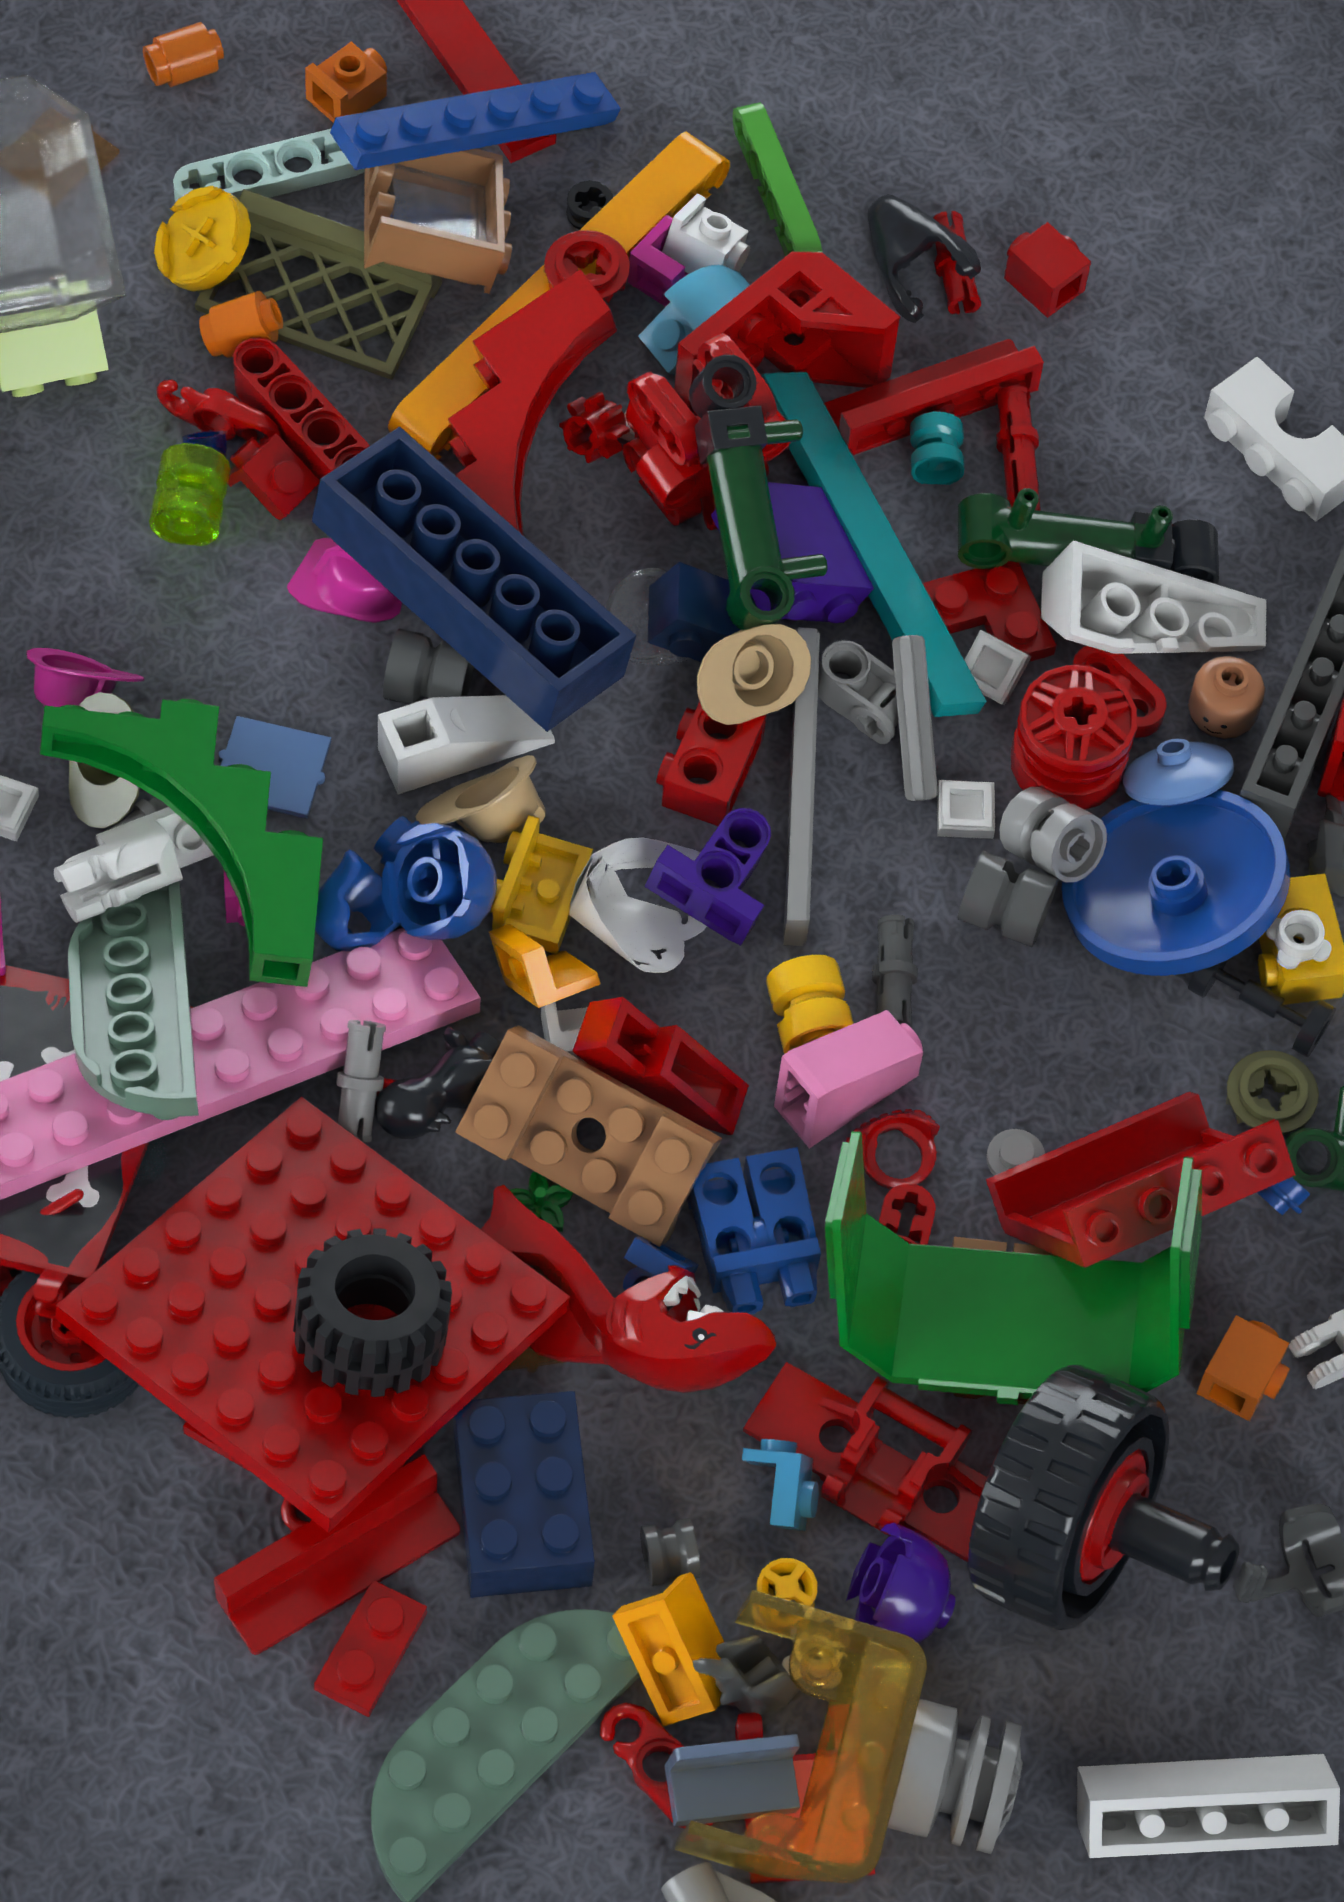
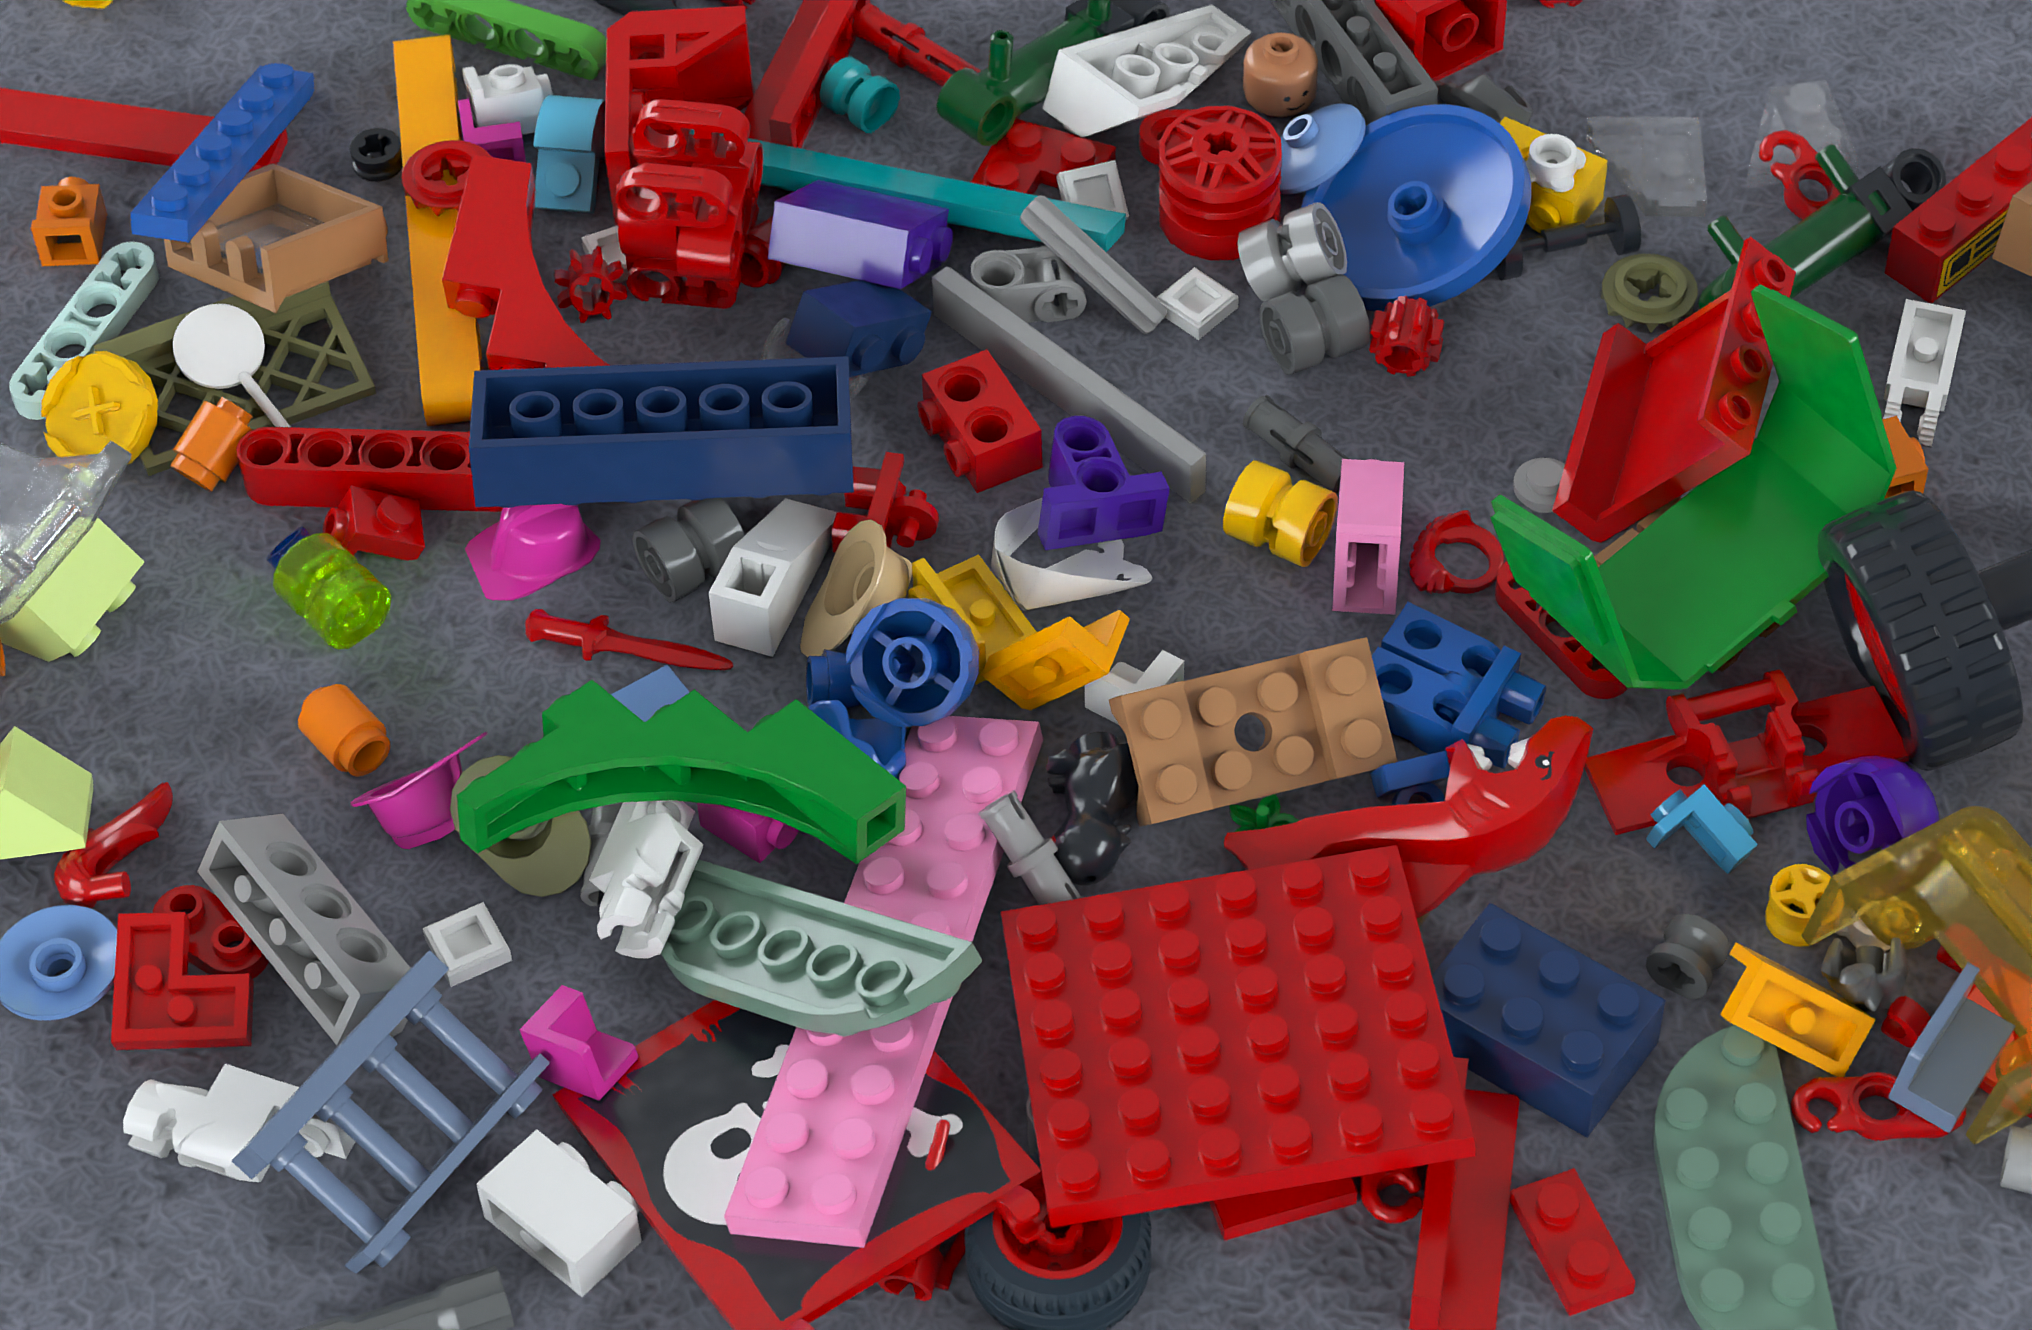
camera: 40 degrees left, 10 degrees down
(91, 595) = (344, 730): none -> orange brick
(216, 411) = (251, 539): red piece -> none
(316, 263) = (222, 349): none -> white piece
(316, 682) = (599, 637): none -> red sword
(362, 1350) = (1306, 964): black tyre -> none
(581, 766) = (885, 498): none -> red hips
(661, 1064) = (1226, 636): red slope -> none
(732, 445) = (760, 159): dark green piece -> none
(753, 673) = (952, 318): tan piece -> none
(1058, 966) = (1406, 336): none -> red gear

